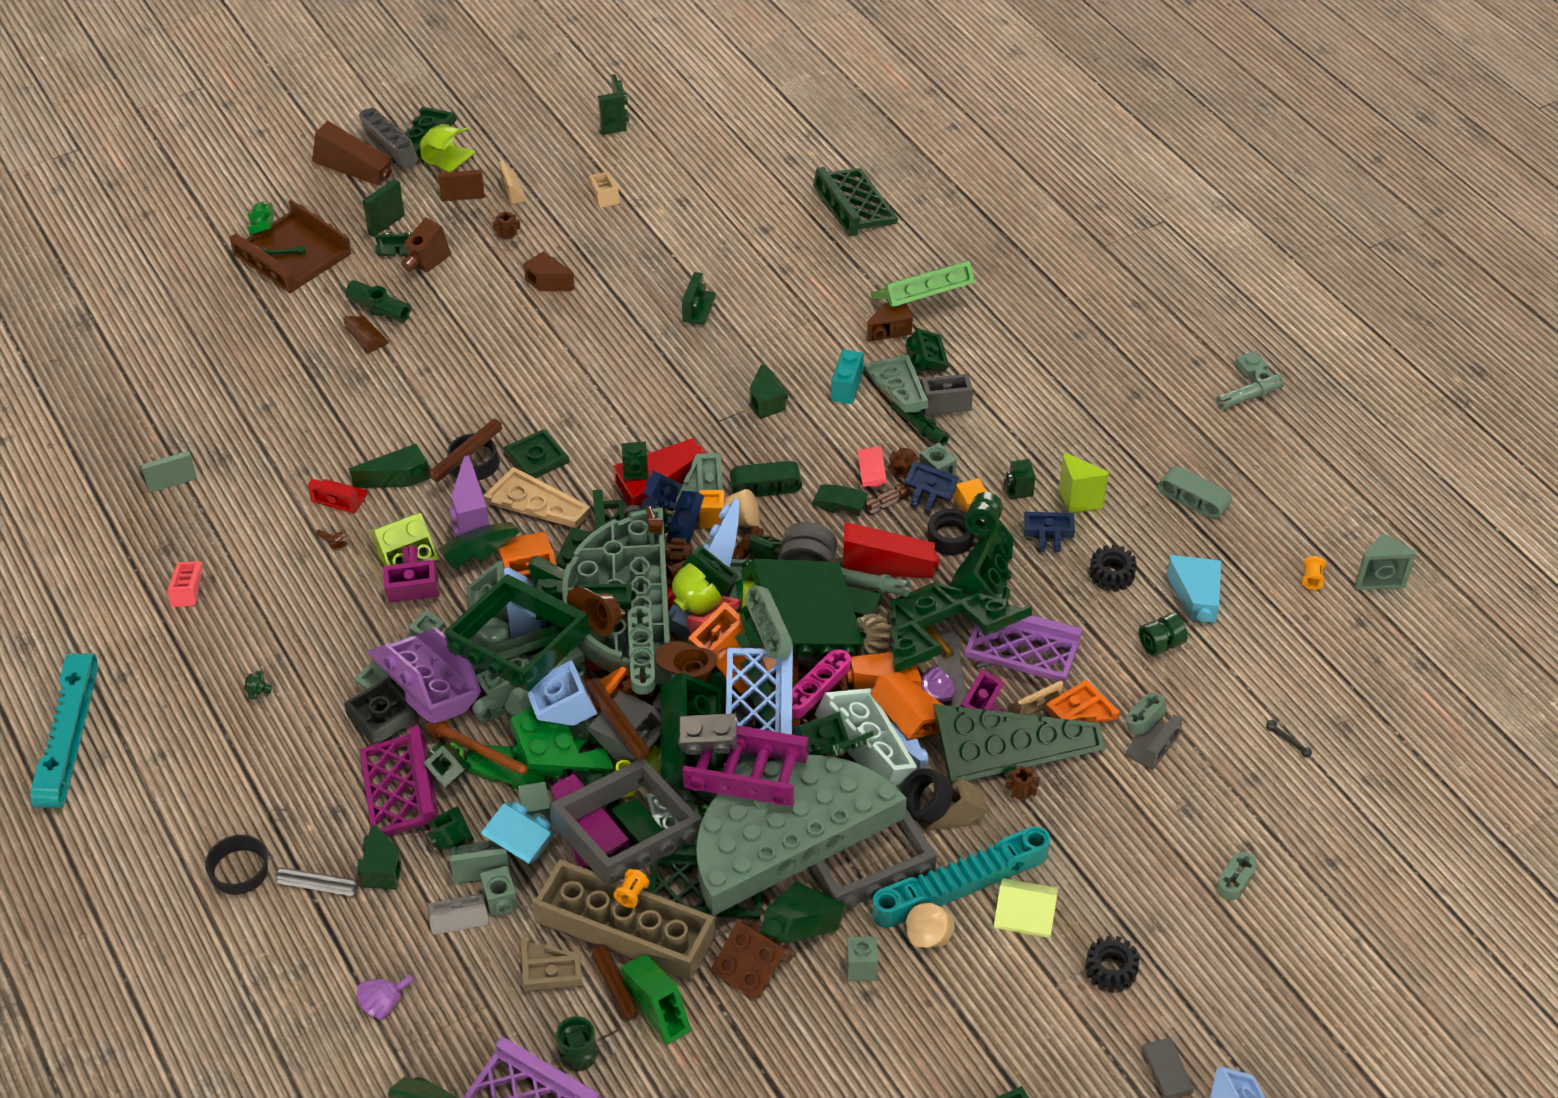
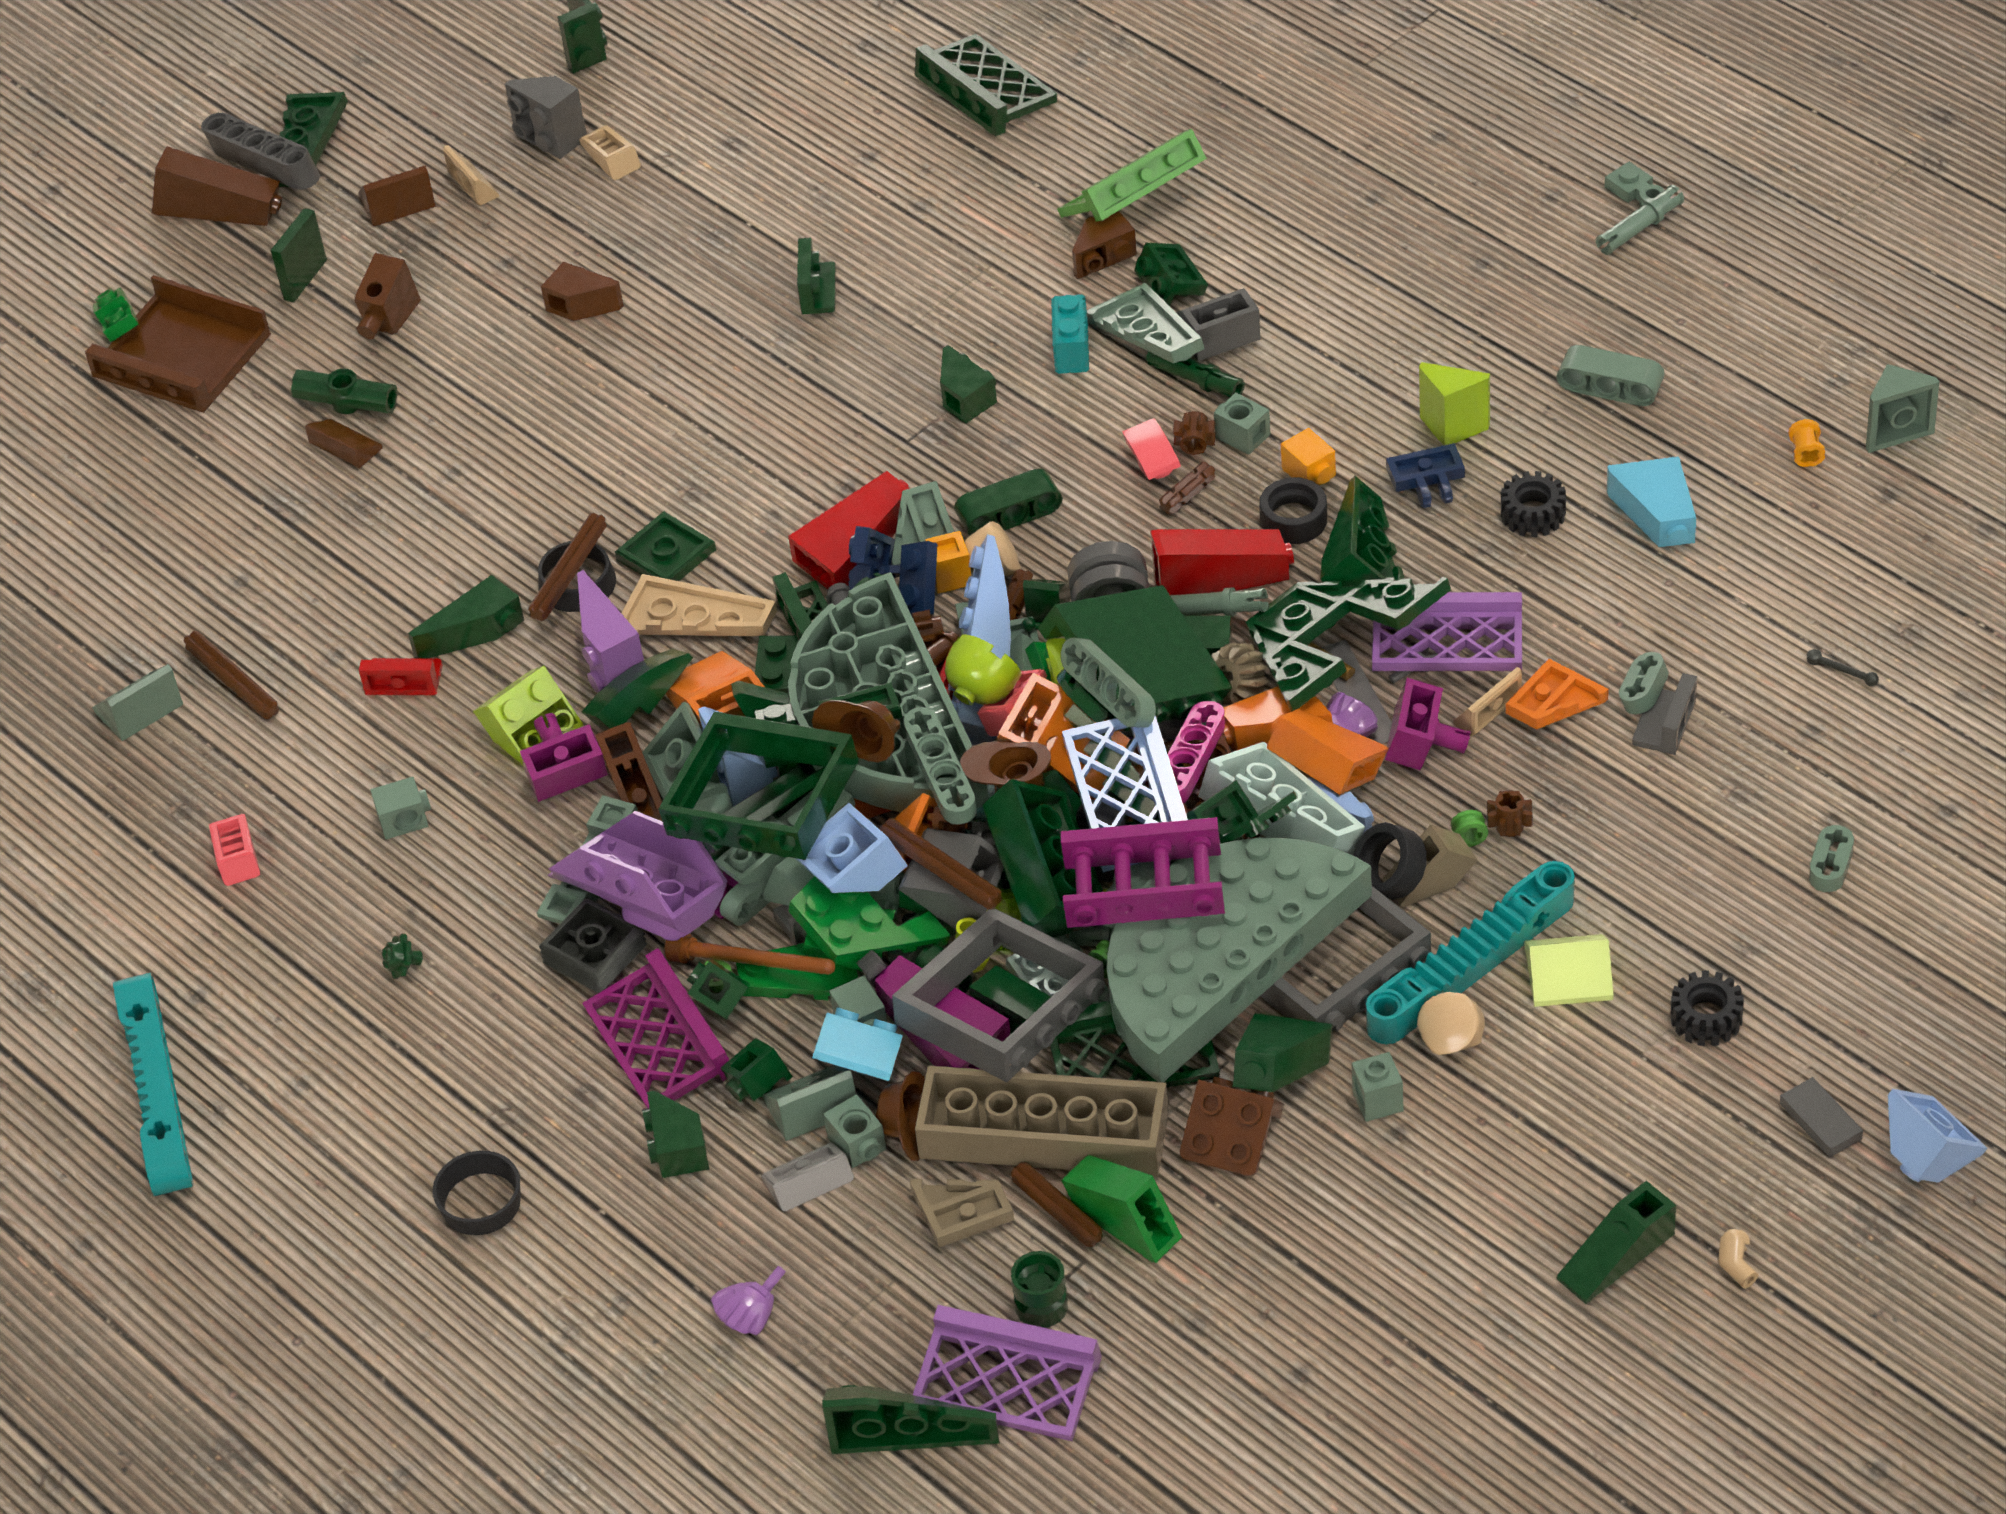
camera: 10 degrees left, 0 degrees up
(232, 467) = (231, 675): none -> reddish brown axle
(298, 583) = (401, 807): none -> sand green brick
(299, 250) = (194, 346): dark green hinge -> none
(317, 881) = (596, 1186): axle -> none
(337, 541) = (426, 738): reddish brown hand -> none
(389, 242) = (322, 305): dark green hinge -> none
(444, 152) = (349, 154): lime piece -> none
(450, 593) = (629, 769): none -> reddish brown slope
(506, 225) = (489, 238): reddish brown gear -> none
(530, 884) = (899, 1111): none -> reddish brown piece
(552, 775) = (871, 965): none -> dark grey hand
(571, 155) = (546, 113): none -> dark grey slope
(621, 893) = (1043, 1074): light orange bush -> none
(634, 461) = (820, 521): dark green brick -> none
(655, 524) = (890, 596): reddish brown hand -> none
(708, 733) = (1080, 846): bracket -> none
(715, 570) = (1002, 638): dark green slope -> none
(836, 496) = (1111, 503): dark green slope -> none
(932, 482) = (1243, 449): dark blue hinge -> none
(983, 514) = (1335, 473): dark green wheel -> none
(992, 786) = (1470, 826): none -> bright green bush
(994, 742) = (1462, 766): dark green wing -> none
(1020, 479) = (1364, 416): dark green brick -> none
(1163, 634) = (1631, 574): dark green wheel -> none

